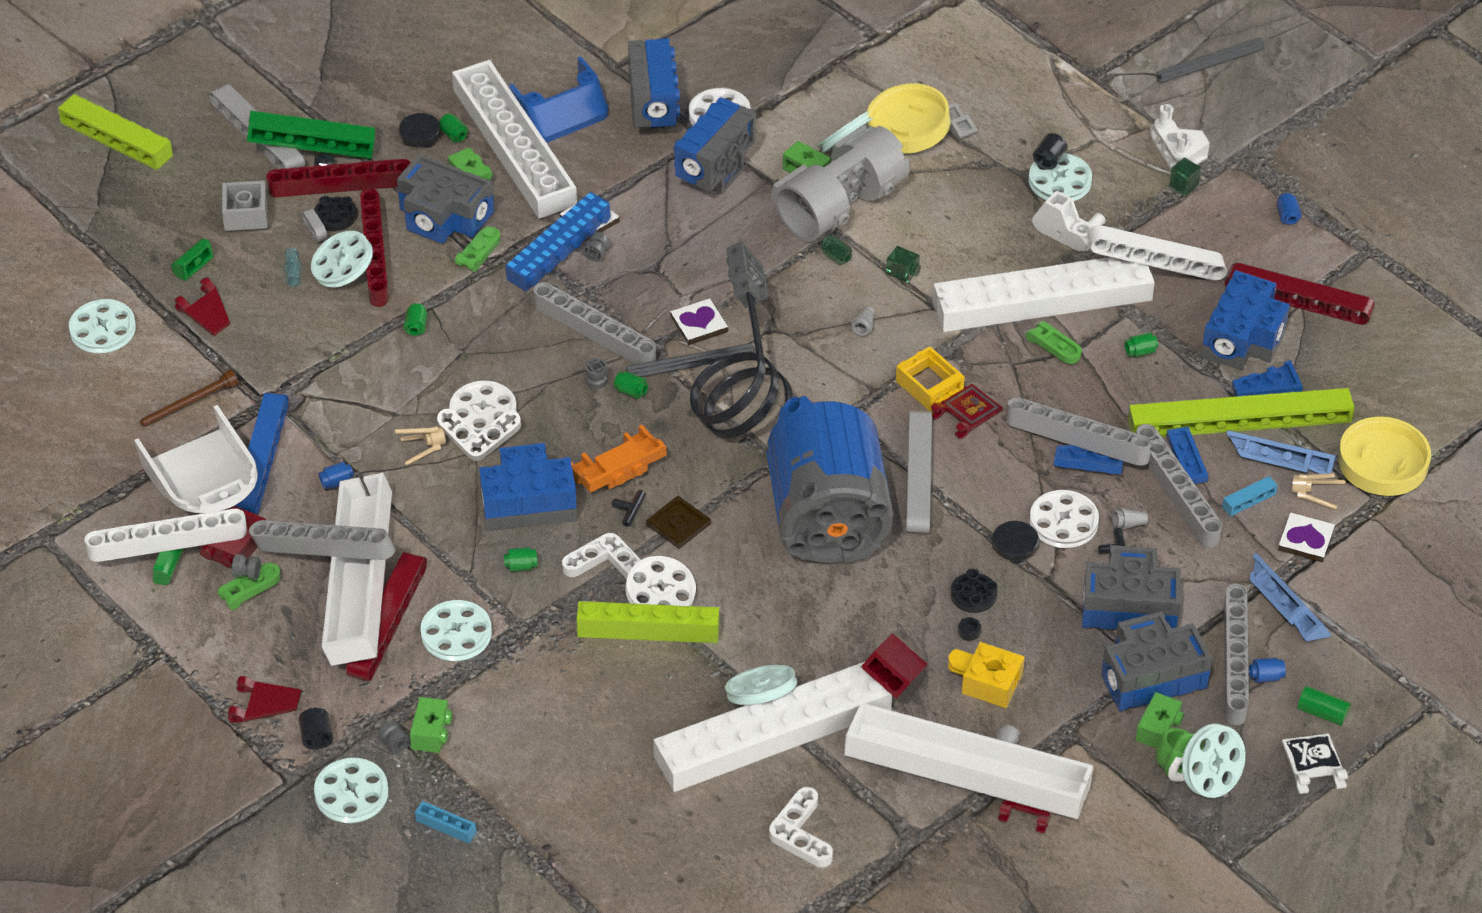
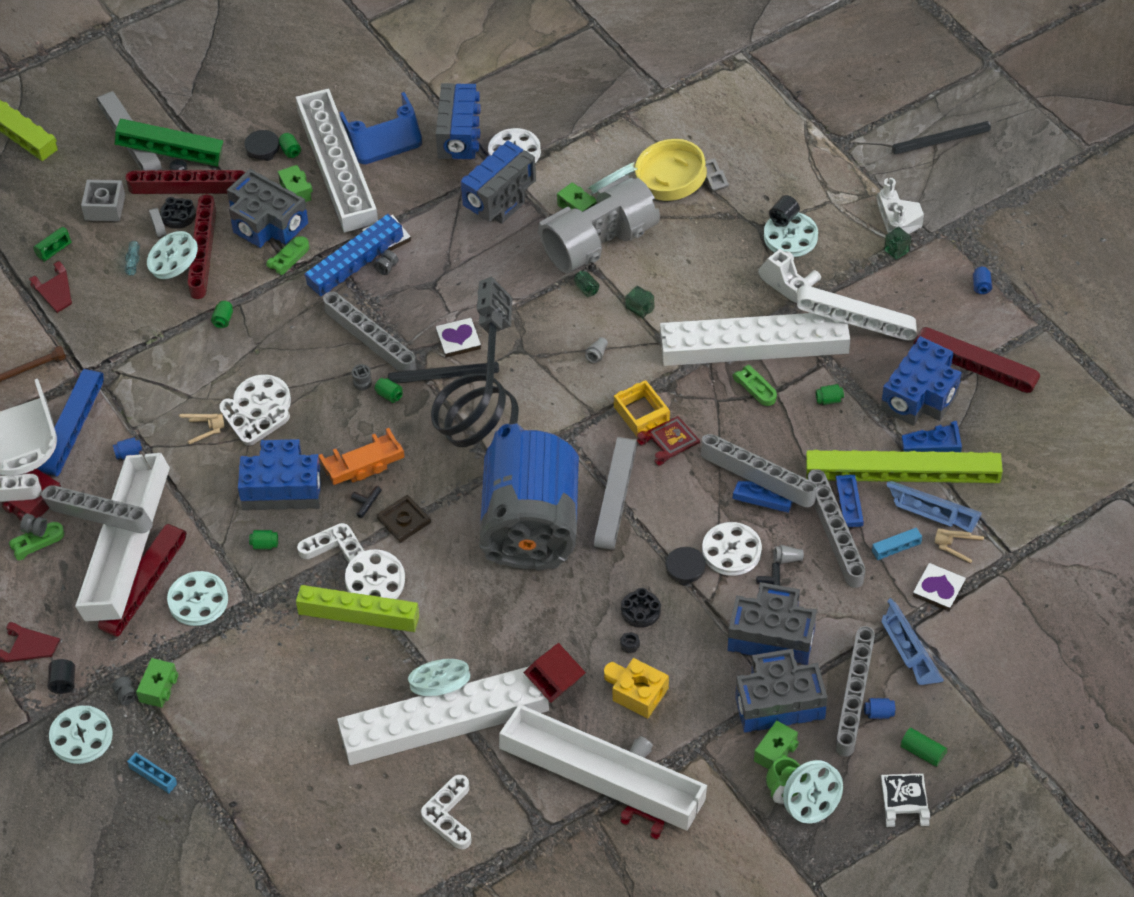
camera: 10 degrees right, 5 degrees up
(1384, 456) = (1021, 518): light yellow piece -> none

